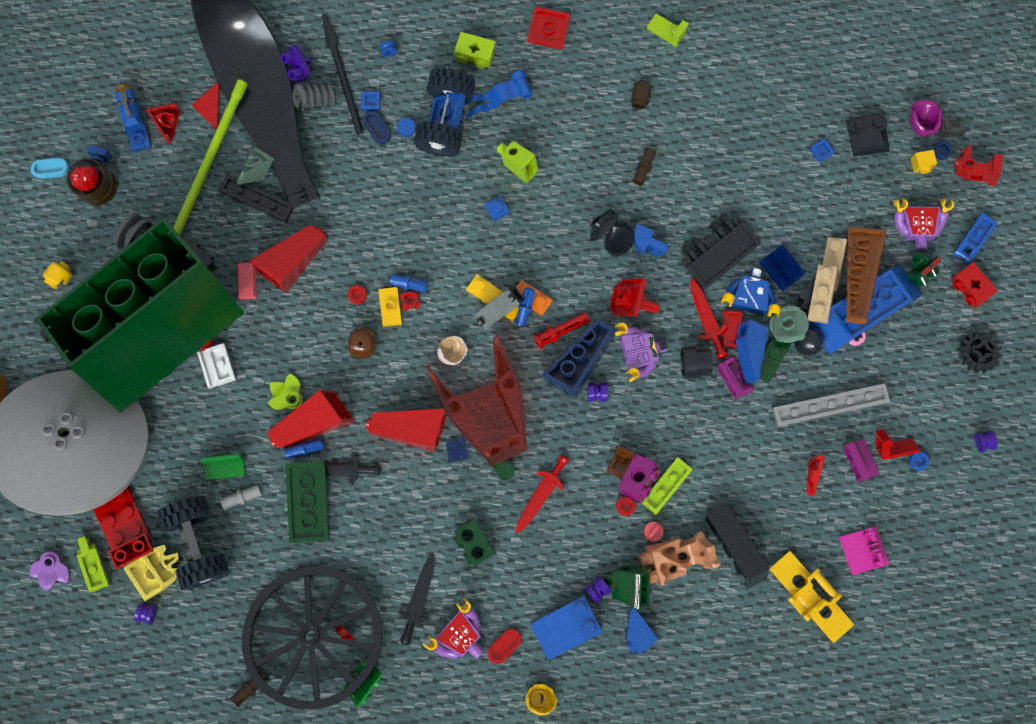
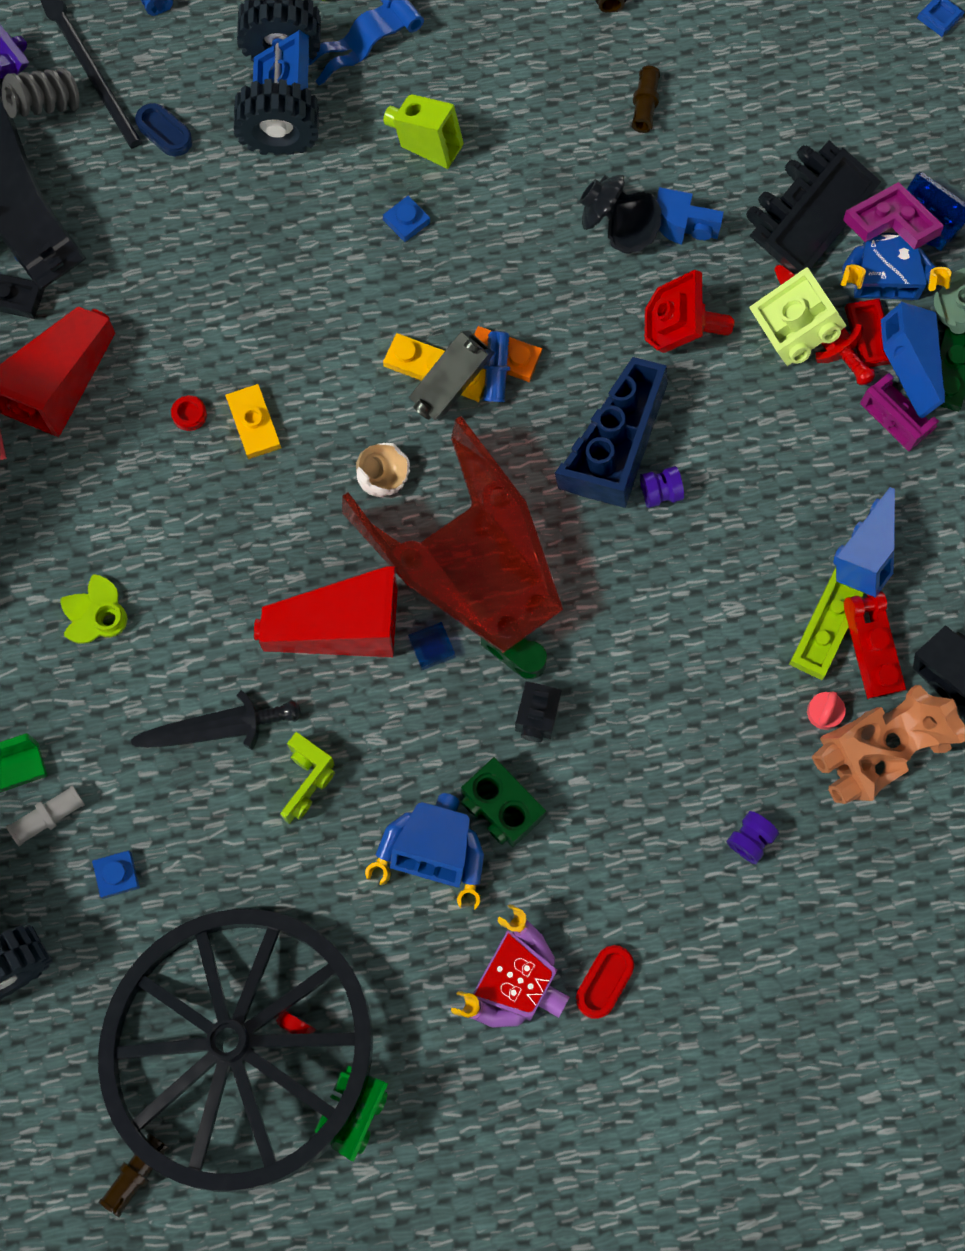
camera: 10 degrees left, 5 degrees down
(270, 535) = (115, 874): none -> blue plate
(303, 448) = (146, 702): blue axle -> none
(307, 502) = (173, 796): dark green plate -> none
(313, 418) = (149, 643): red slope -> none
(367, 337) = (225, 500): reddish brown helmet -> none
(370, 101) = (143, 89): blue tile -> none
(379, 496) = (307, 755): none -> lime bracket
(405, 297) = (280, 396): red plate -> none
(406, 127) = (215, 118): blue tile -> none
(408, 283) = (277, 373): blue axle -> none
(418, 601) = (421, 947): black sword -> none
(433, 557) = (434, 846): none -> blue torso
(503, 499) = (537, 711): none -> black brick
(533, 699) = (715, 1066): yellow hair -> none
(542, 492) = (606, 685): red sword -> none
(553, 334) = (558, 408): red pin -> none
(566, 628) = (713, 920): blue slope -> none
(620, 461) = (737, 598): reddish brown bracket -> none
(625, 506) = (764, 676): red plate -> none
(630, 585) = (813, 812): dark green torso -> none
(638, 633) = (849, 898): blue slope -> none
(639, 350) = (718, 398): medium lavender torso -> none
(639, 468) = (773, 600): magenta brick -> none
(687, 503) = (874, 645): none -> red plate
(693, 314) = (798, 317): none -> yellowish green plate
(696, 362) = (824, 395): black piece -> none
(696, 455) = (869, 555): none -> slope
(760, 265) = (896, 210): none -> magenta plate

